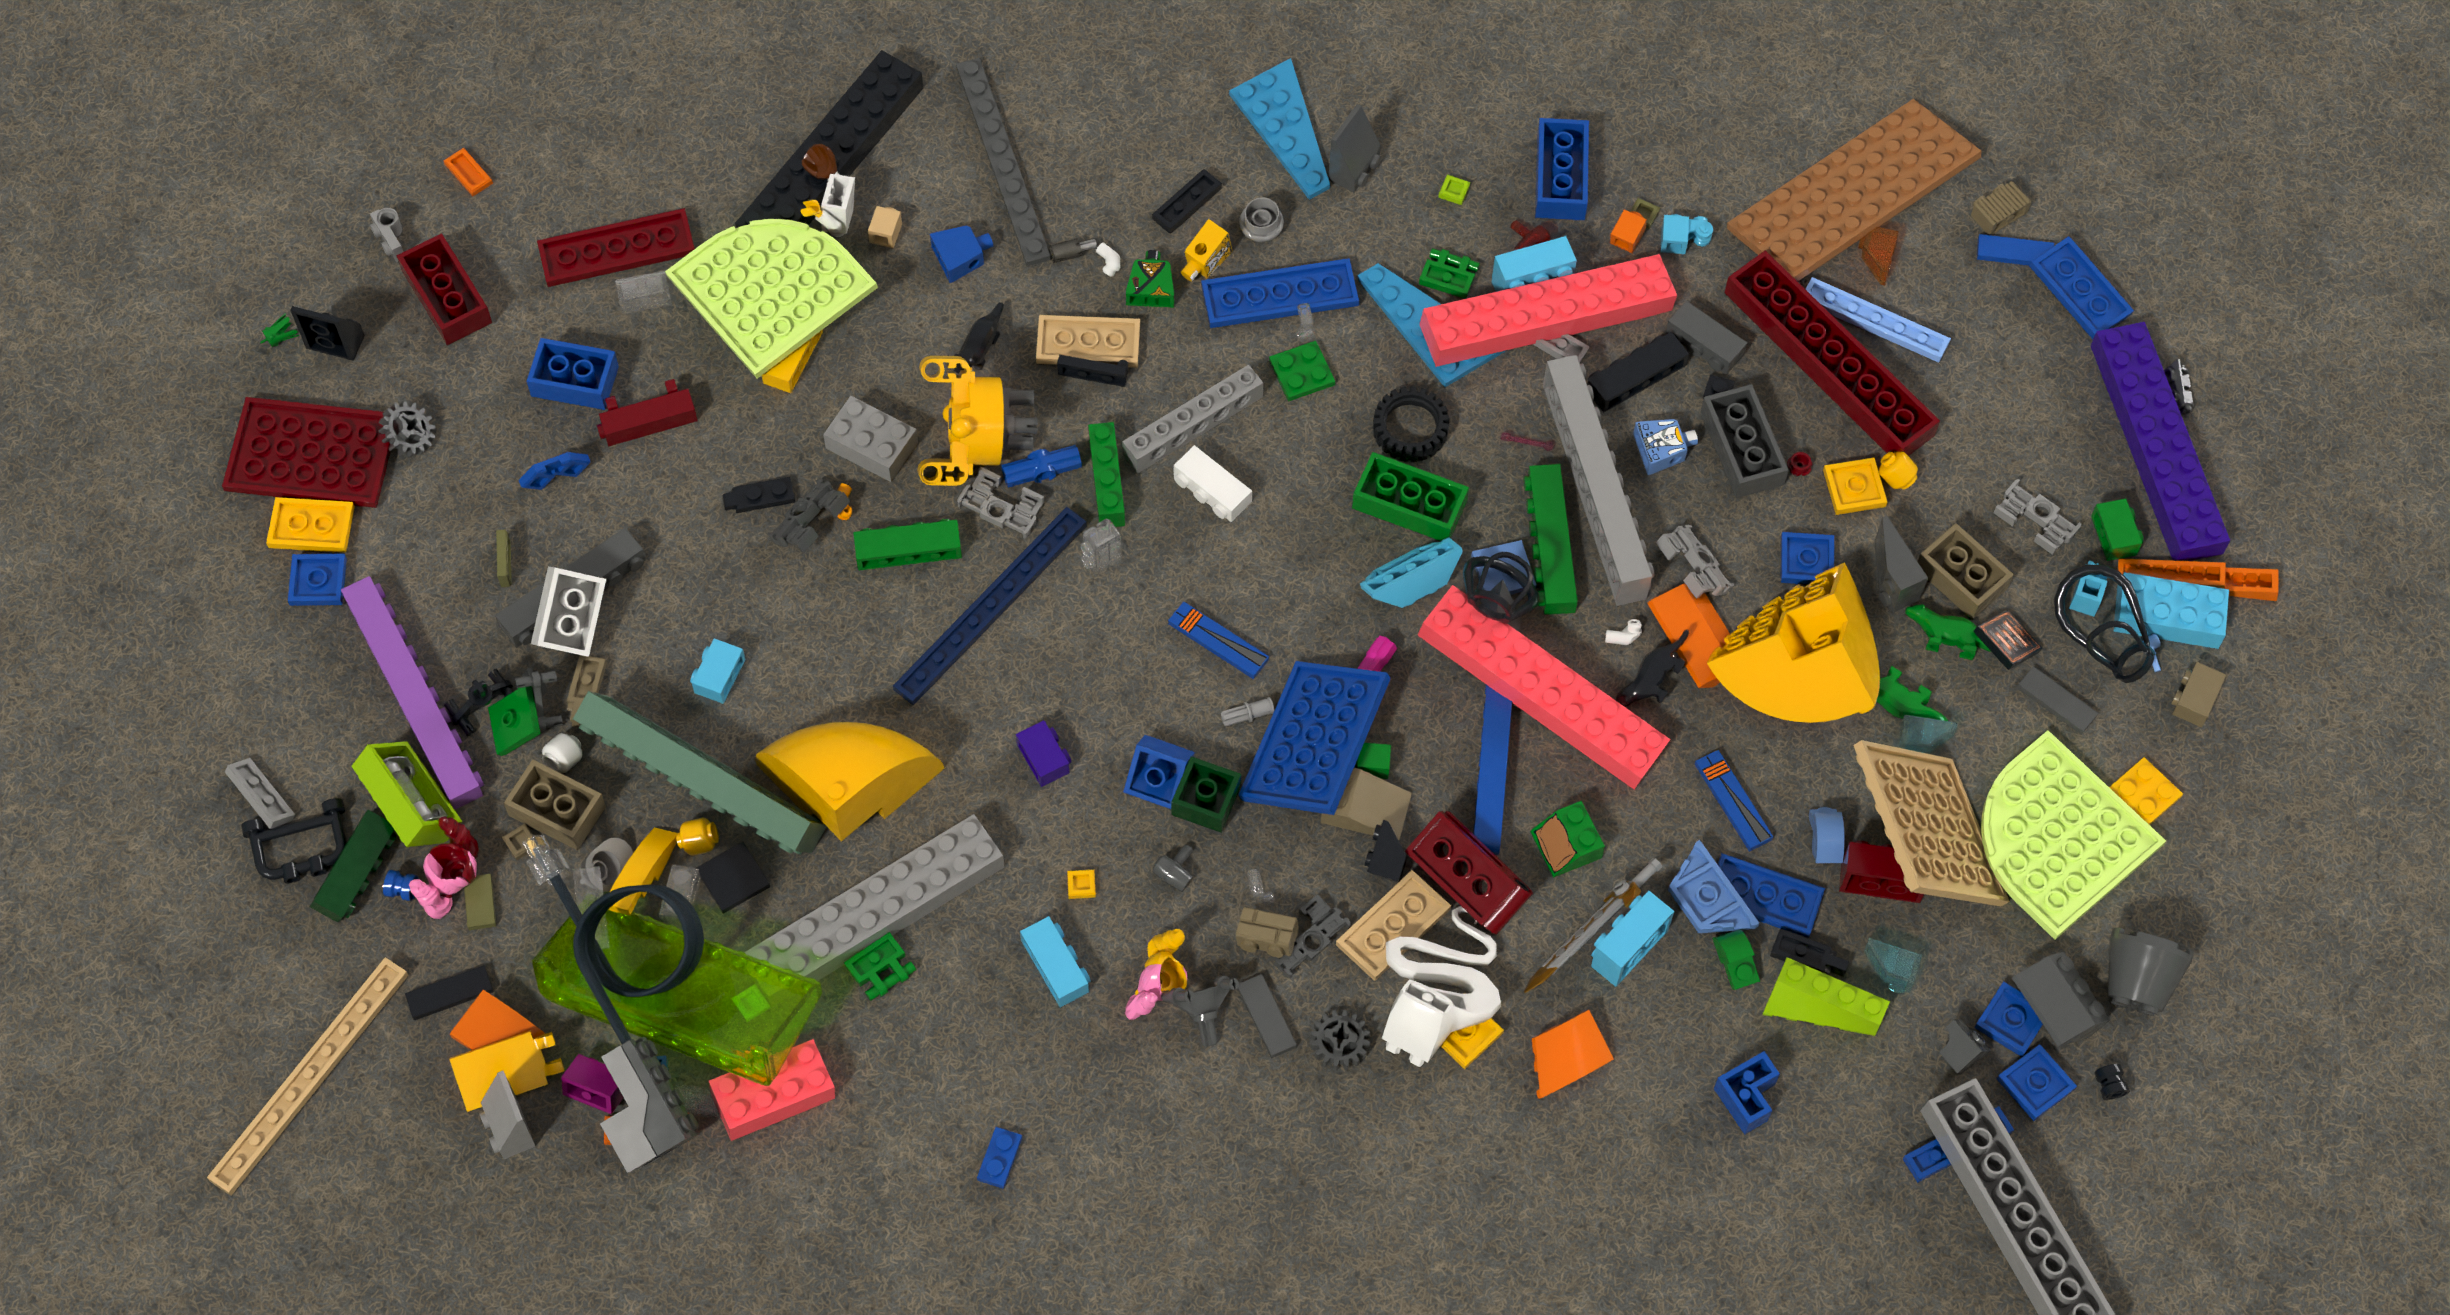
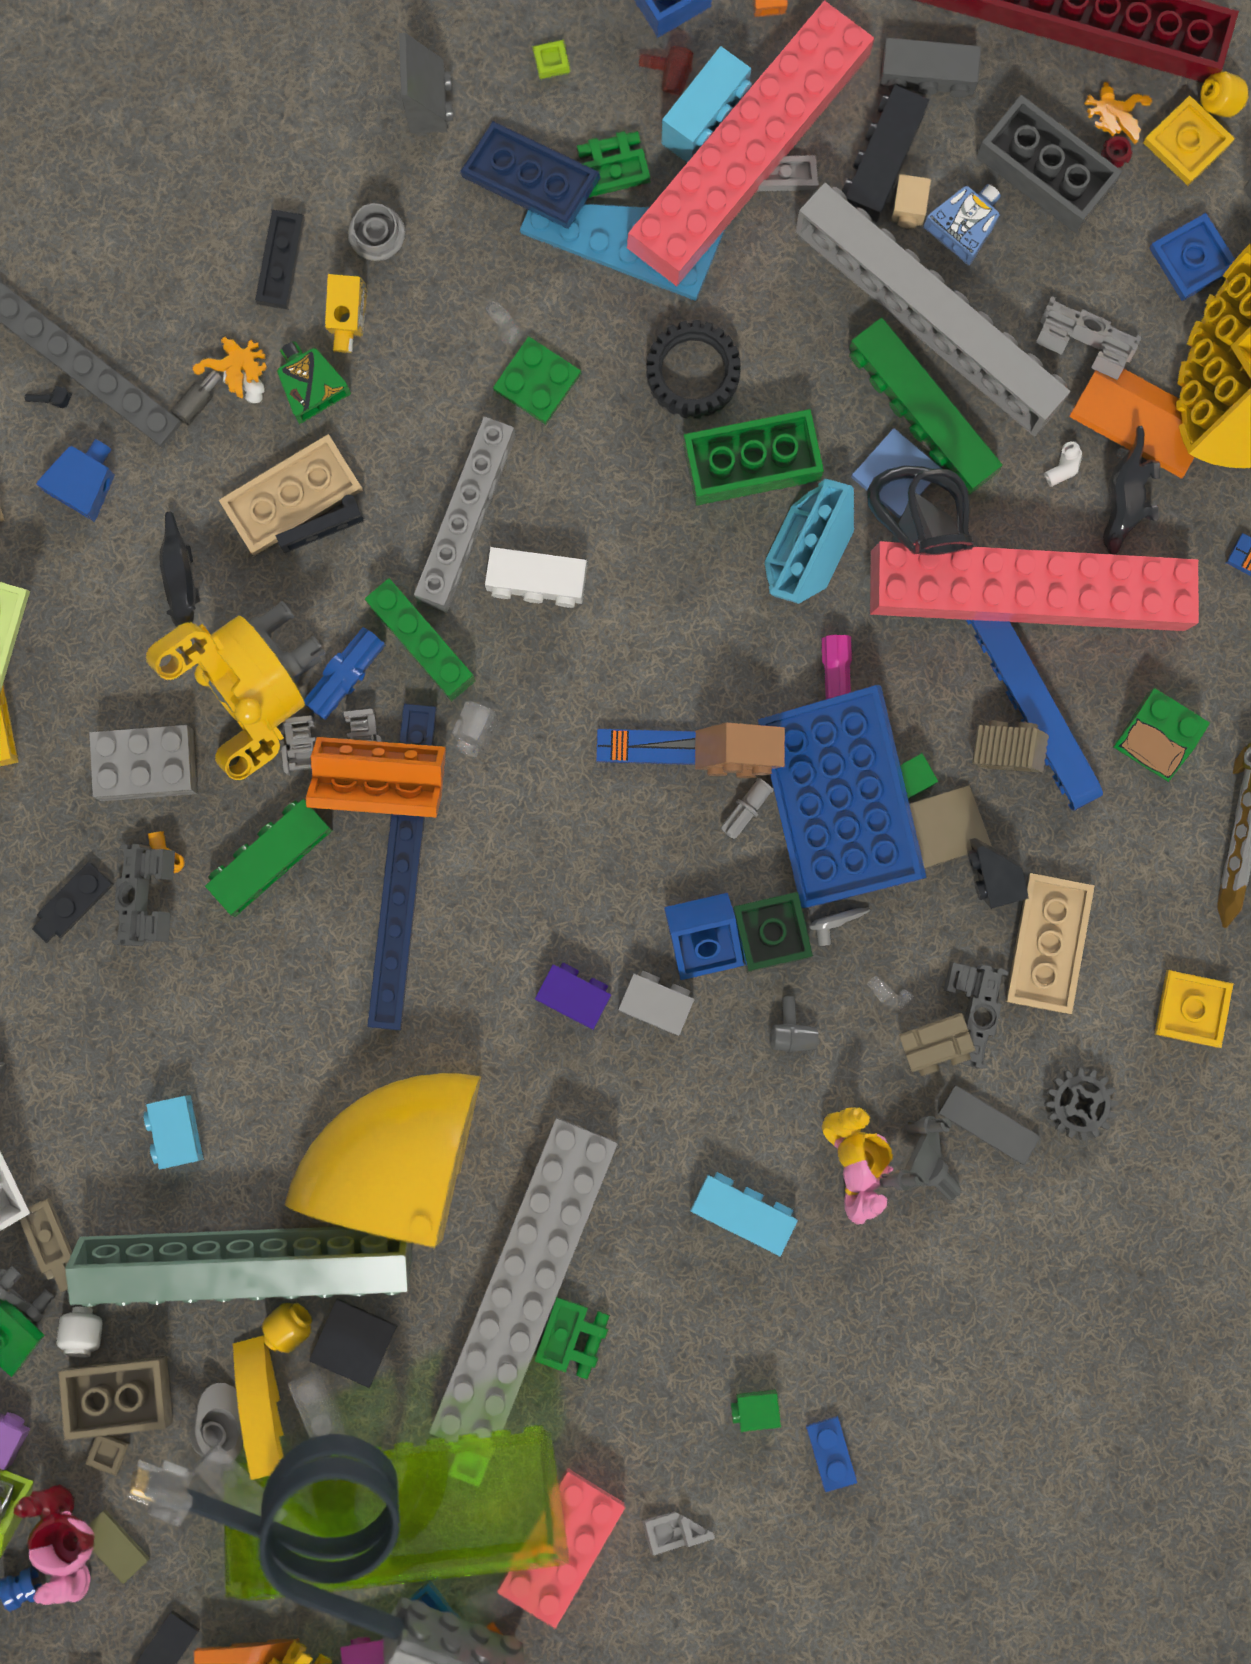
camera: 30 degrees left, 20 degrees up
(854, 1137) = (672, 1532): none -> light grey slope
(969, 1092) = (756, 1410): none -> green brick
(982, 198) = (60, 397): none -> black hand
(1015, 536) = (376, 777): none -> orange slope
(1081, 884) = (709, 1109): yellow tile -> none
(1095, 792) = (657, 1003): none -> light grey brick
(1108, 243) = (238, 360): none -> light orange piece
(1256, 819) = (824, 924): none -> light grey bar
(1267, 663) = (739, 749): none -> medium nougat brick
(1279, 292) = (452, 304): blue plate -> none
(1281, 118) = (306, 90): dark azure wing -> none
(1388, 246) = (530, 174): none -> dark blue tile
(1426, 1015) = (1167, 1031): white hips -> none
(1454, 779) = (1010, 747): none -> dark tan brick
(1505, 889) = (1134, 865): dark red hinge -> none
(1548, 446) = (847, 299): clear pink hinge -> none
(1633, 408) = (910, 201): none -> tan brick
(1717, 385) = (978, 118): black plate -> none
(1813, 435) = (1119, 111): none -> light orange piece

